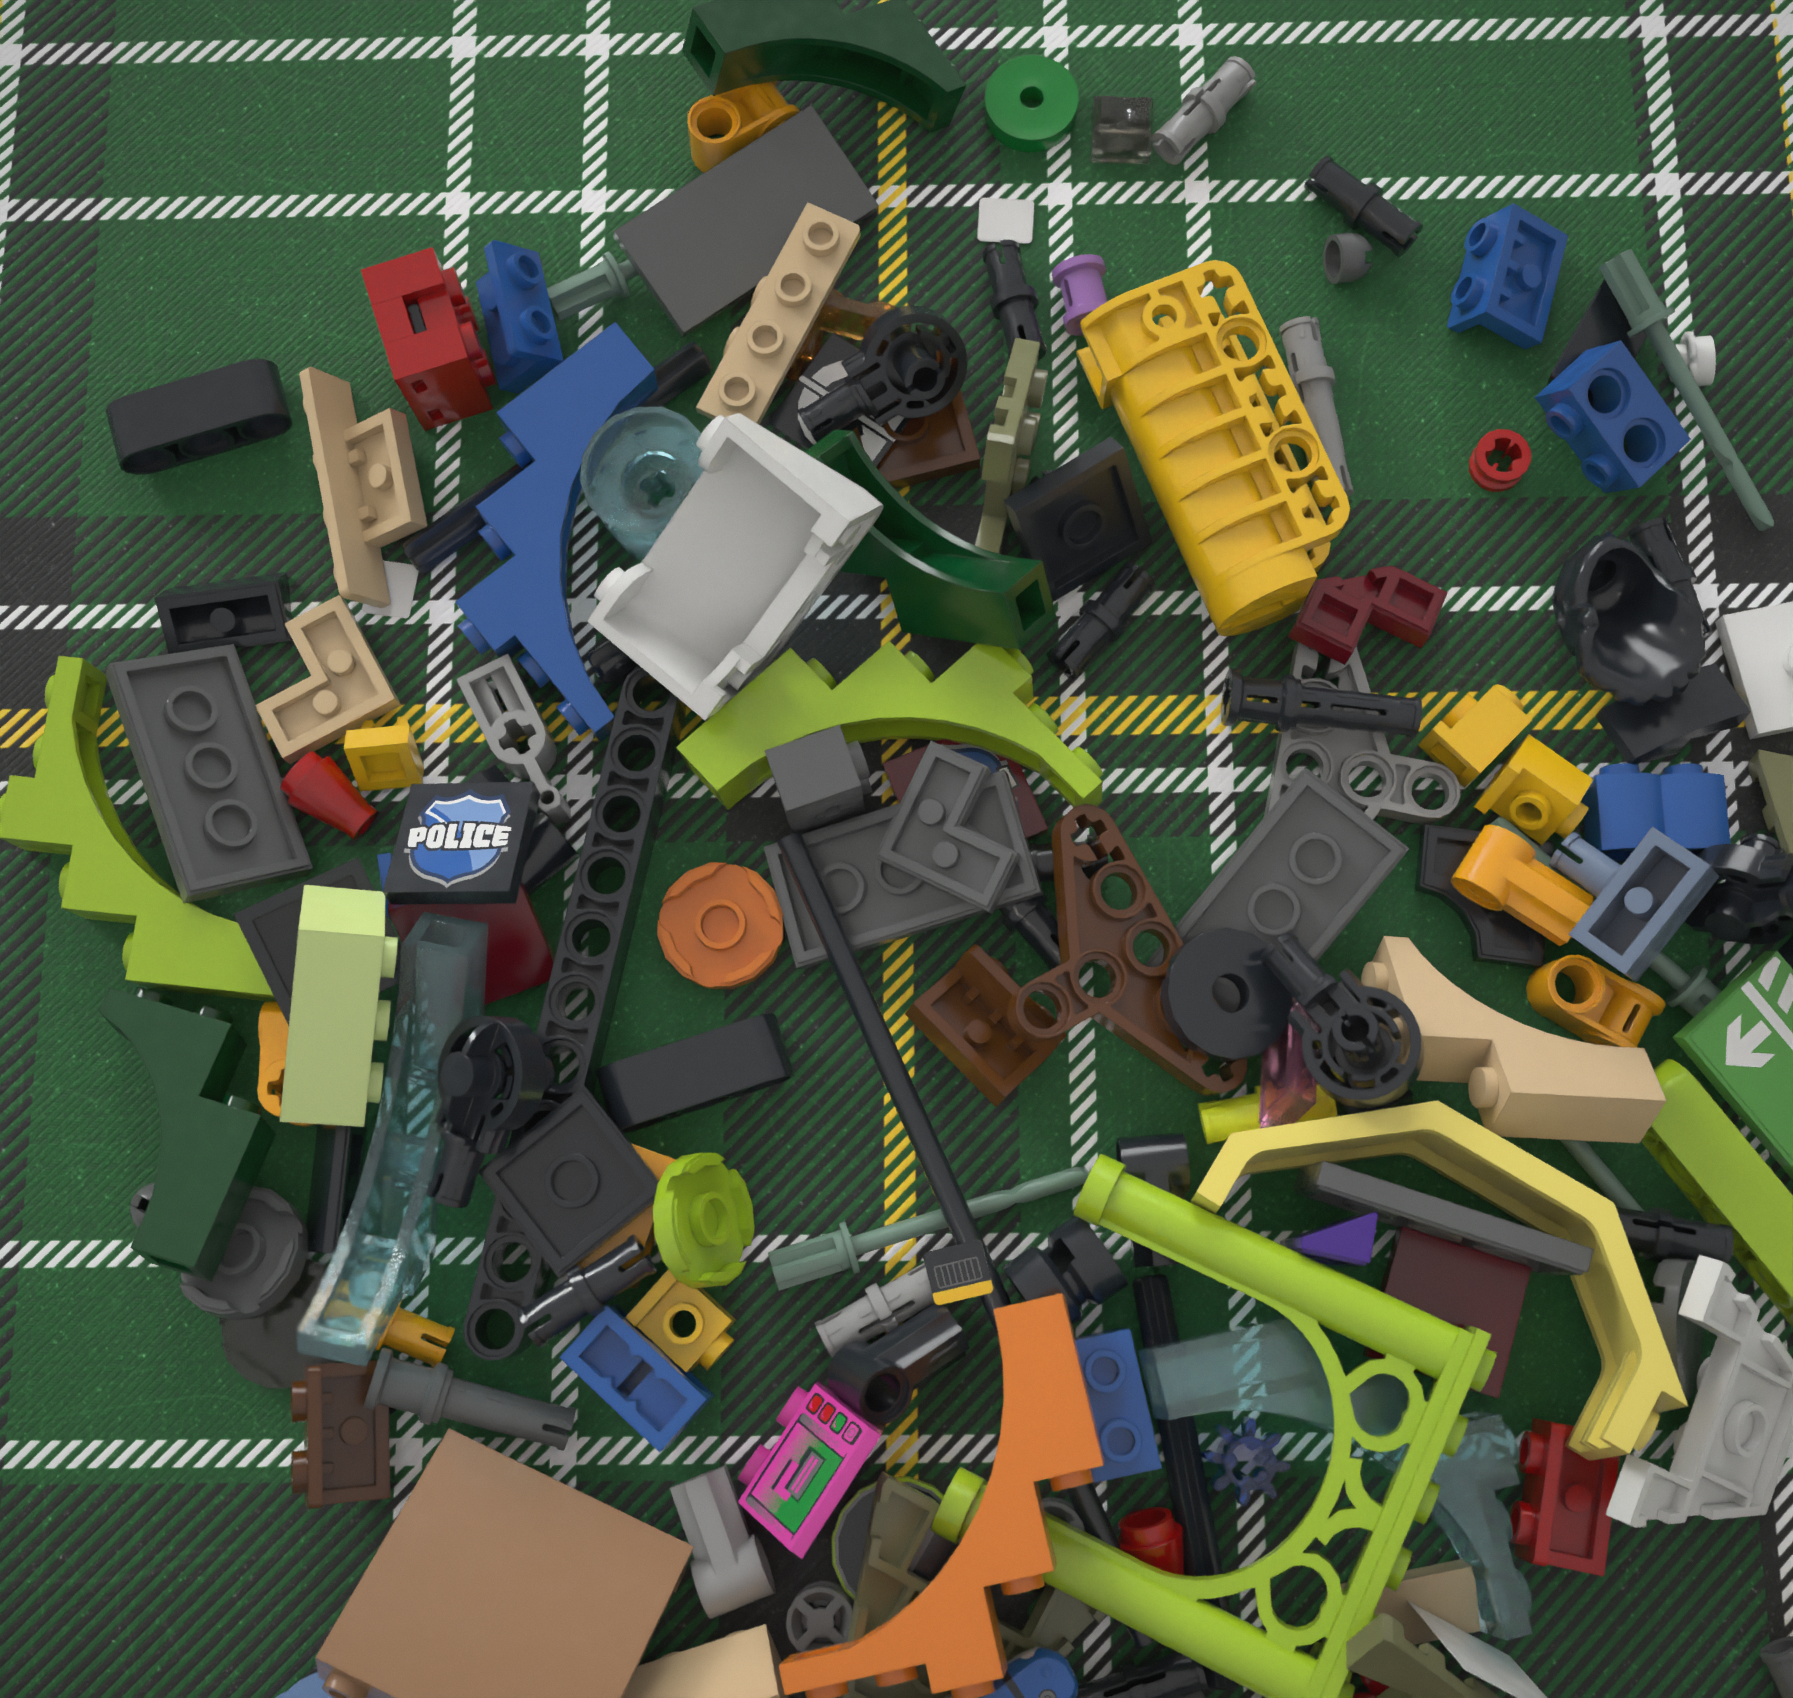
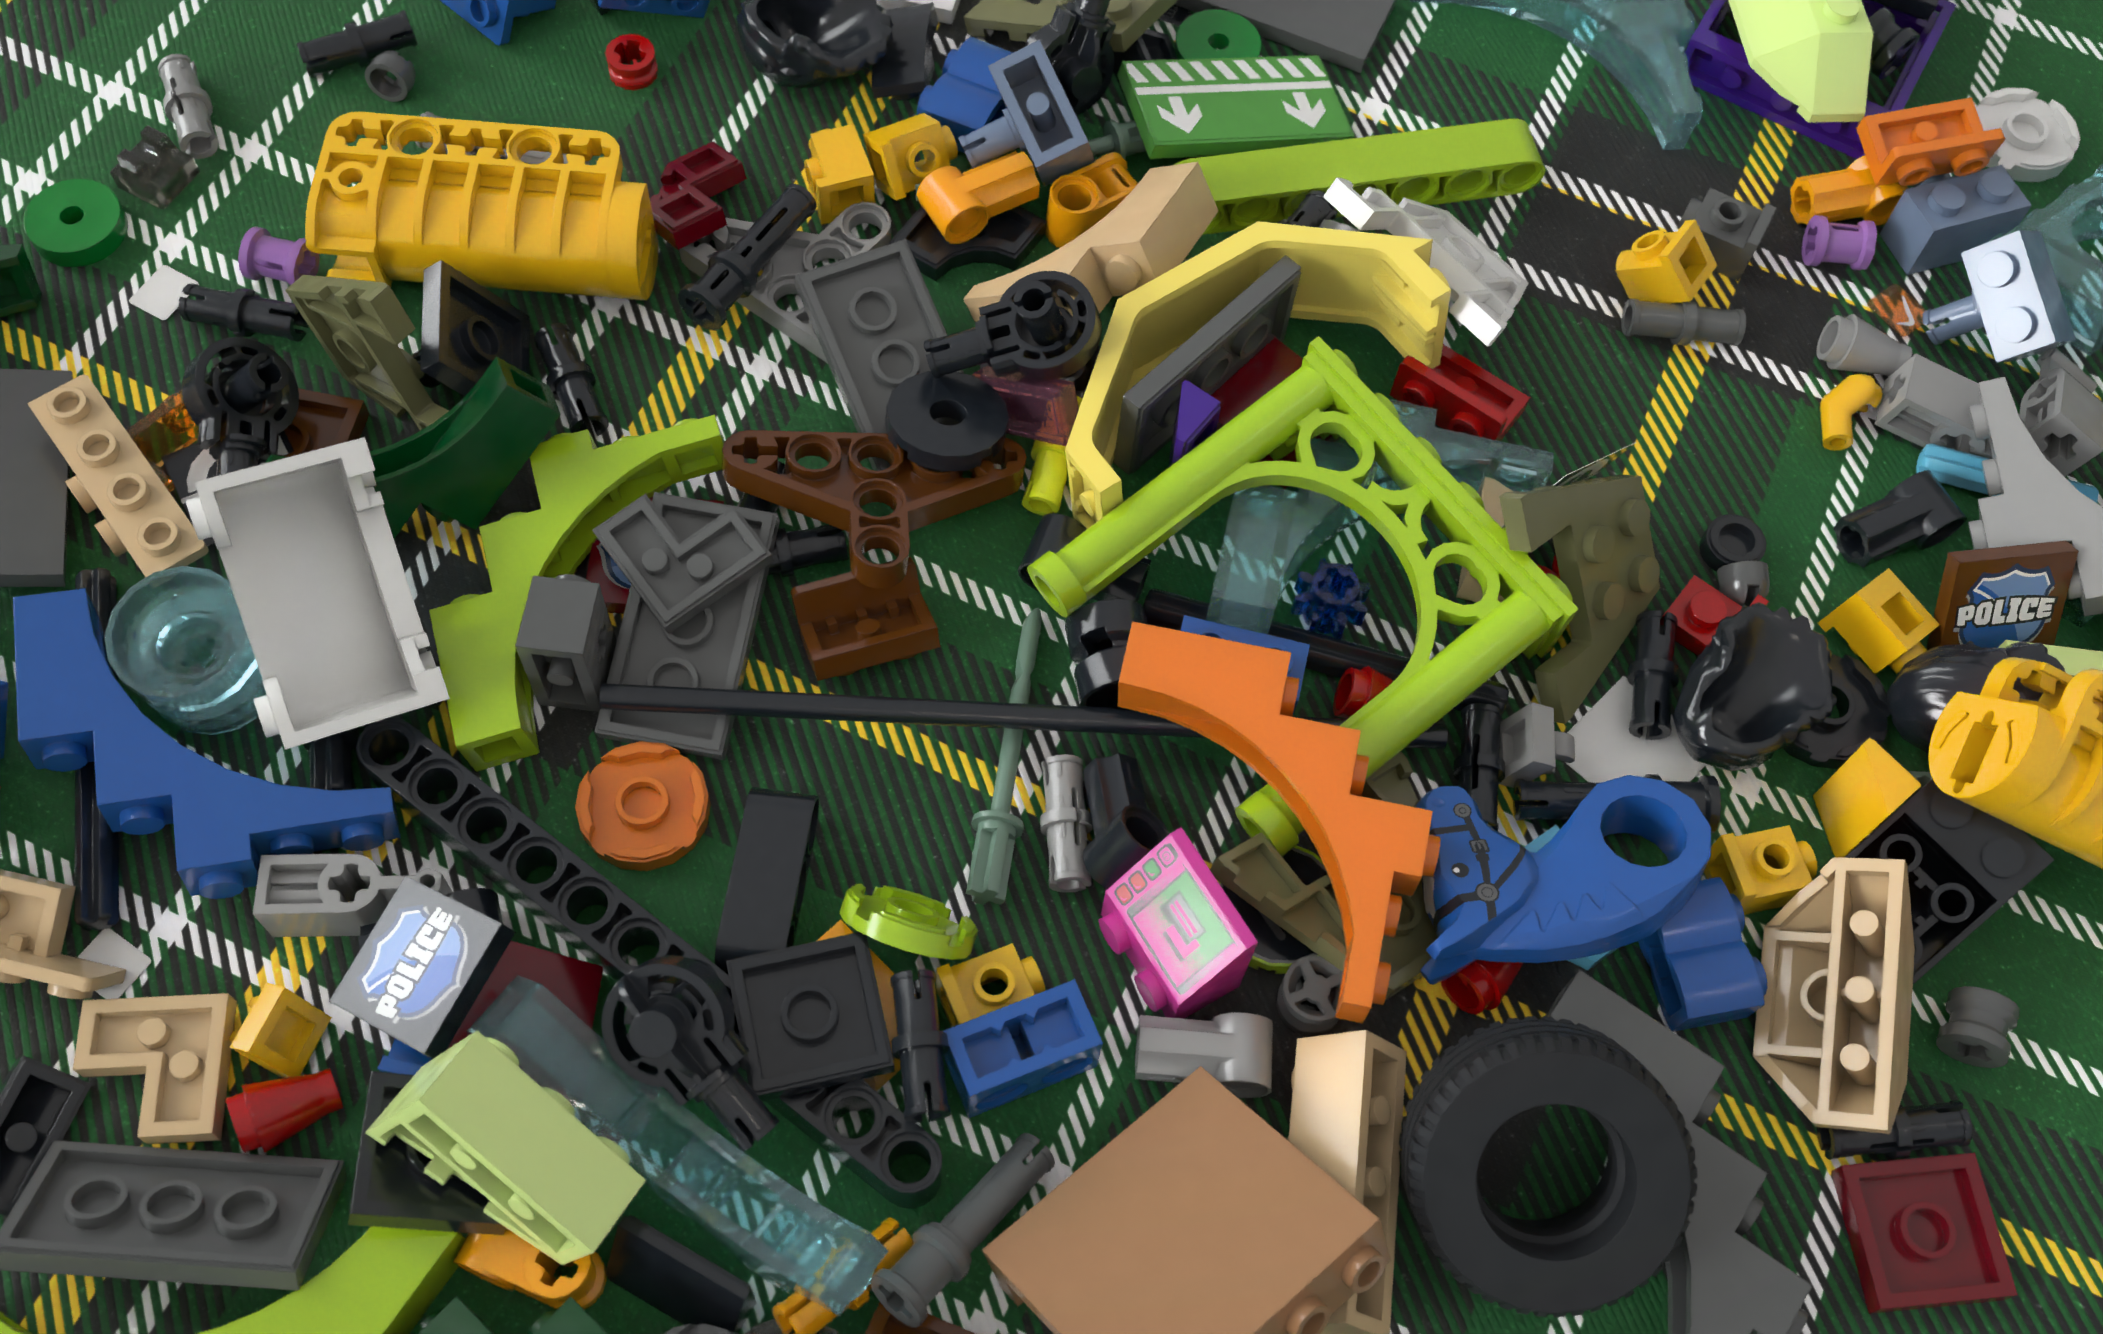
camera: 75 degrees left, 15 degrees down
(958, 1272) = (1067, 734): black sticker -> none

